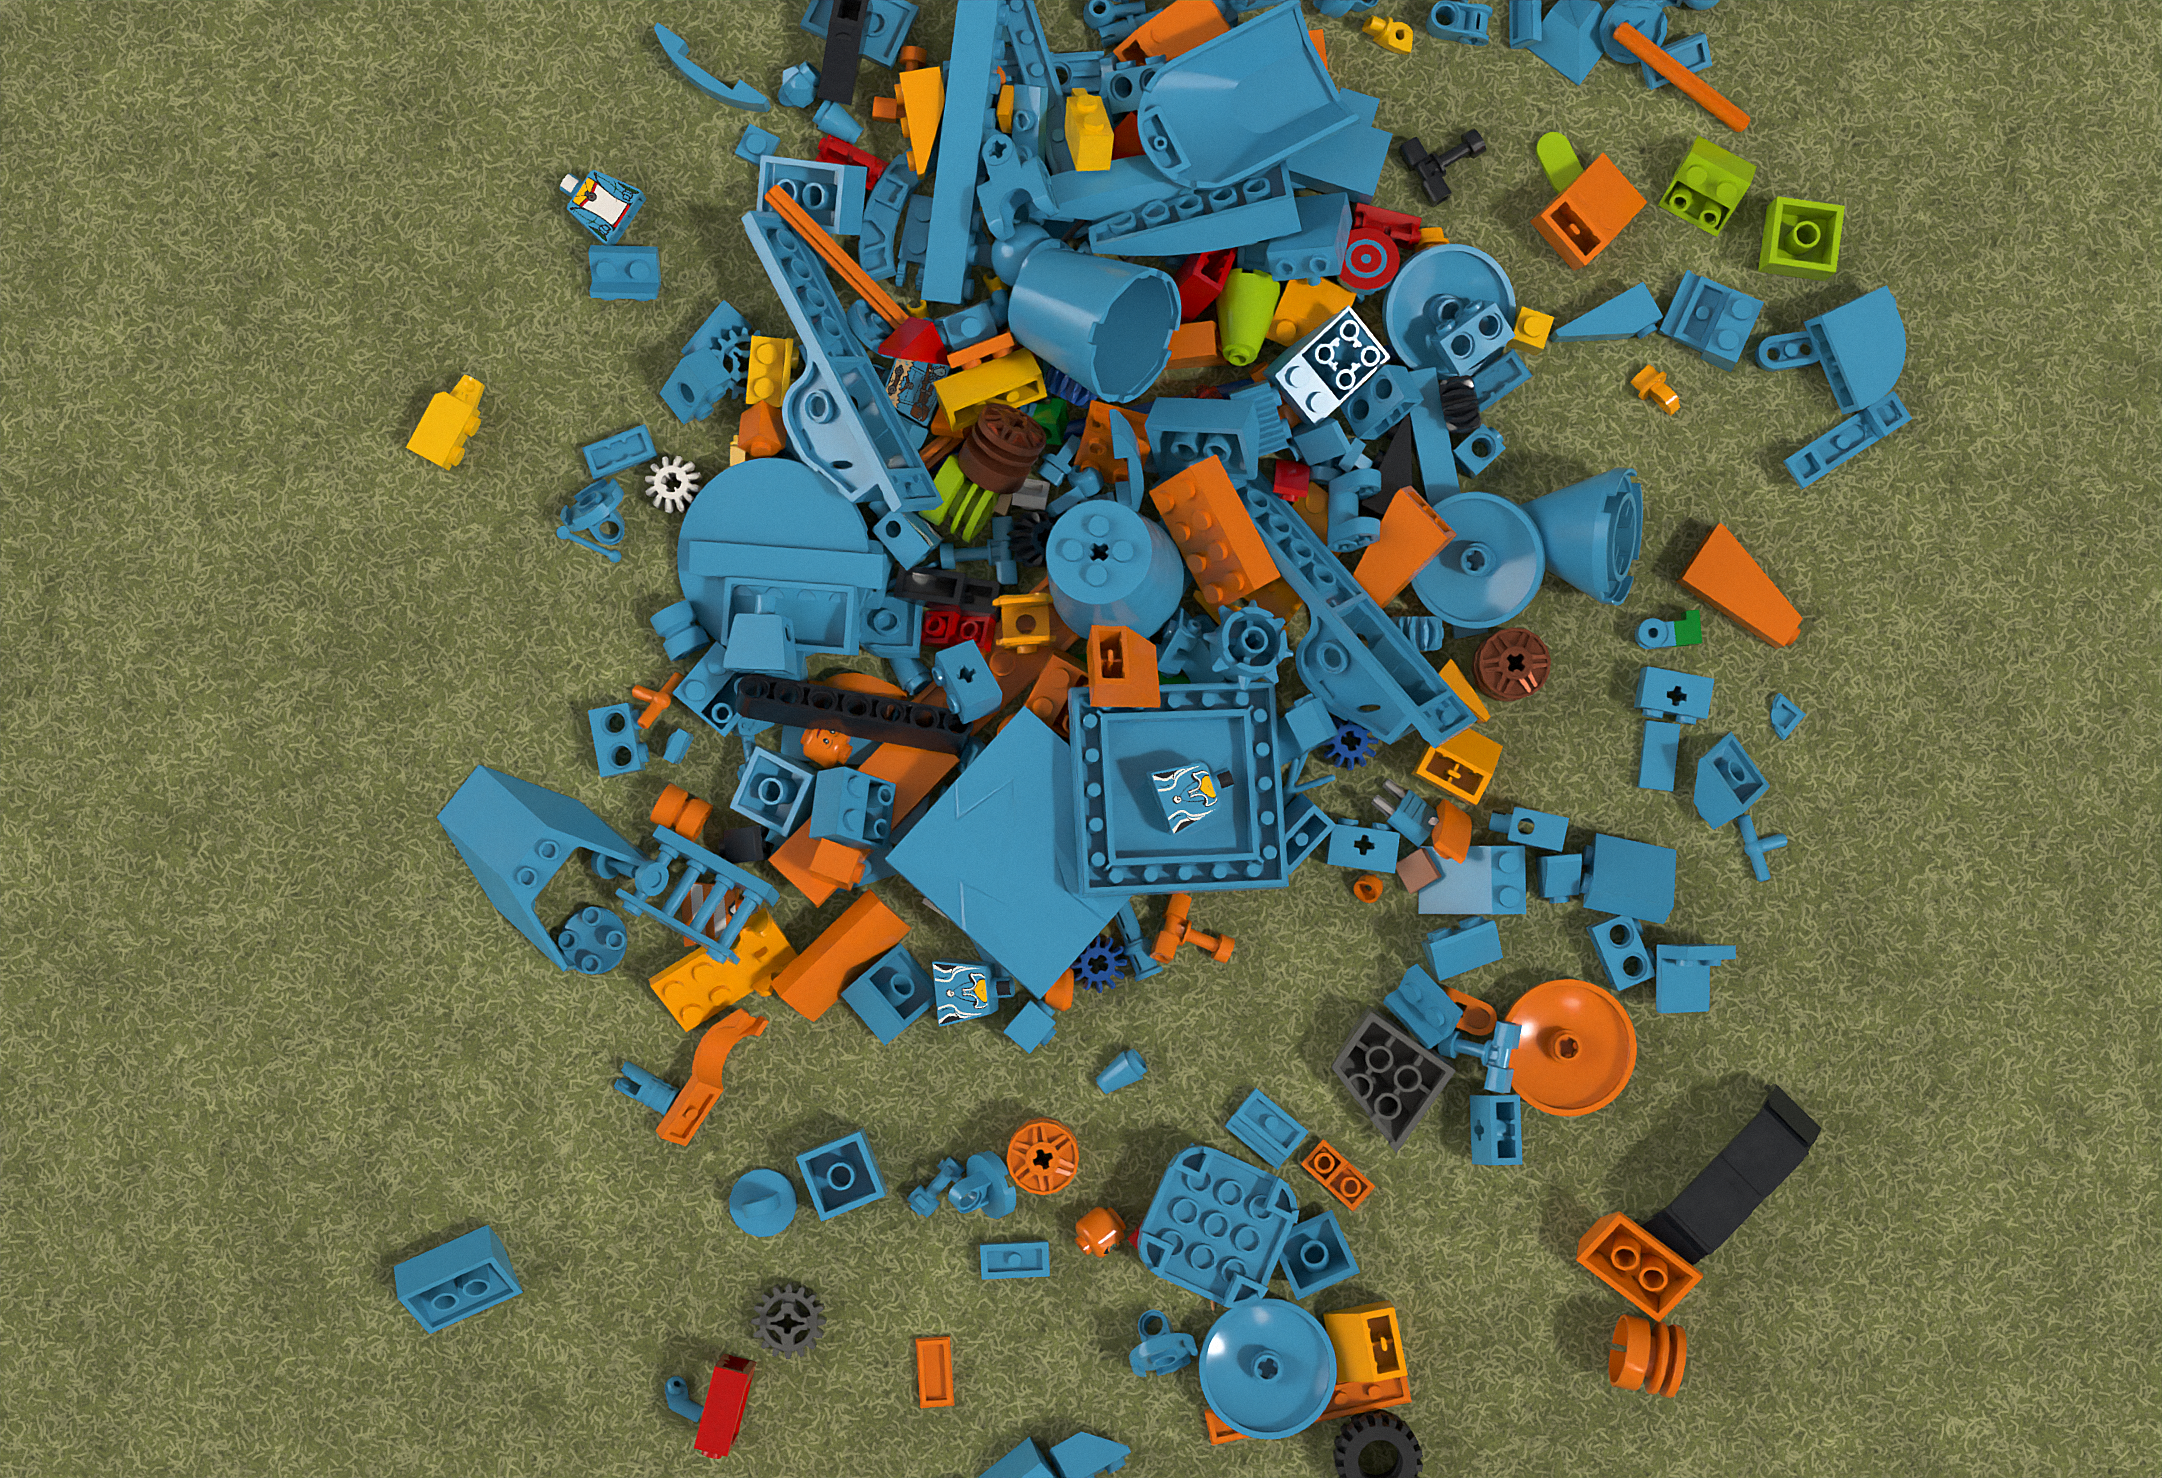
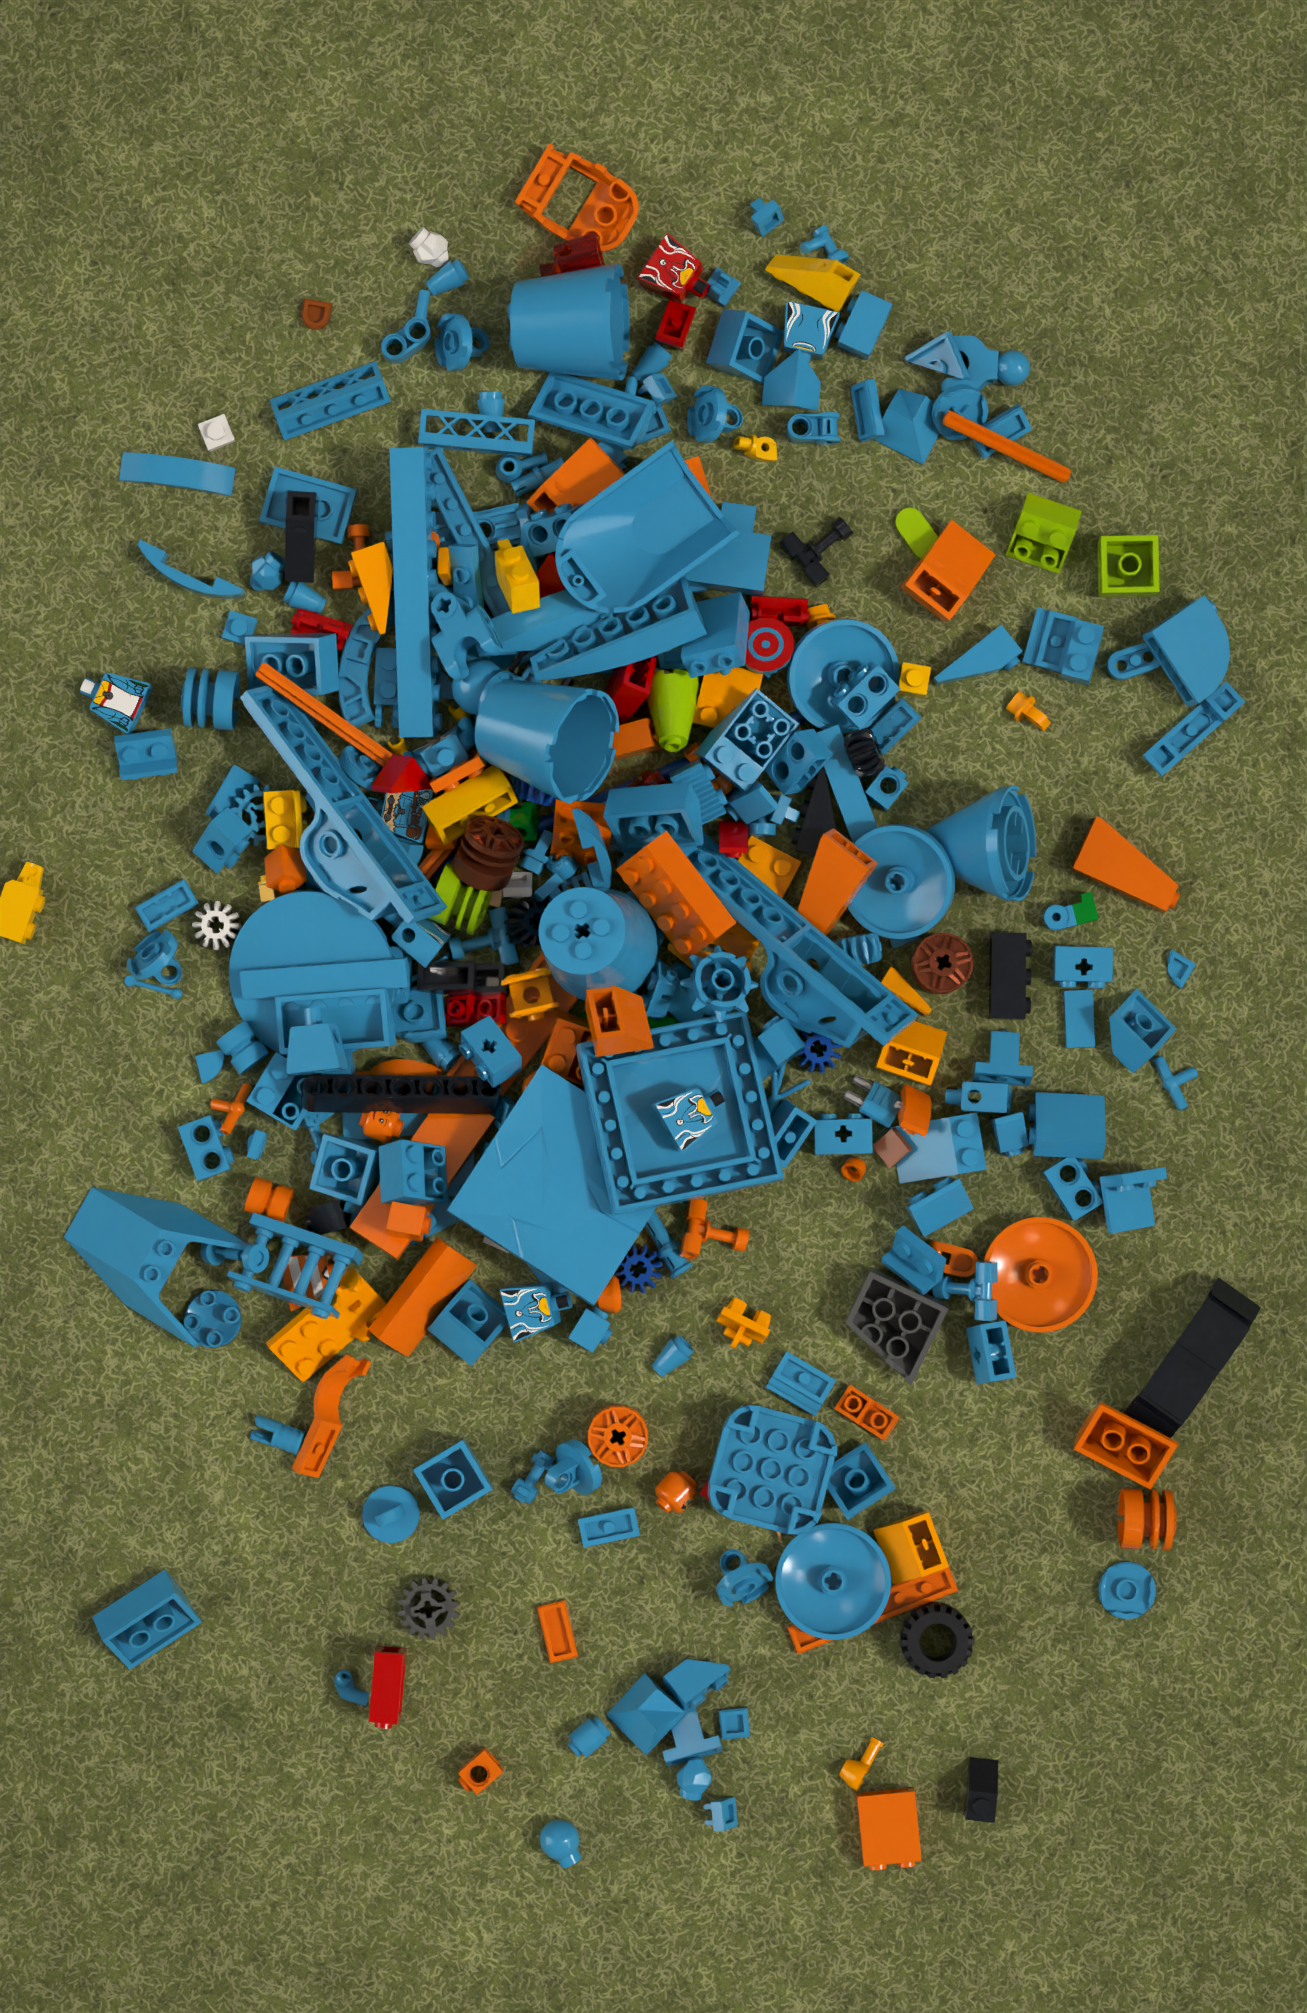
camera: 10 degrees left, 0 degrees up
(639, 645) = (210, 1065): none -> dark azure tile
(702, 218) = (210, 698): none -> dark azure wheel
(1208, 1053) = (742, 1328): none -> light orange hips
(1345, 529) = (784, 872): dark azure connector -> none
(1564, 791) = (1003, 1062): none -> dark azure piece
(1586, 692) = (1009, 976): none -> black brick
(1600, 1438) = (1119, 1582): none -> dark azure tile

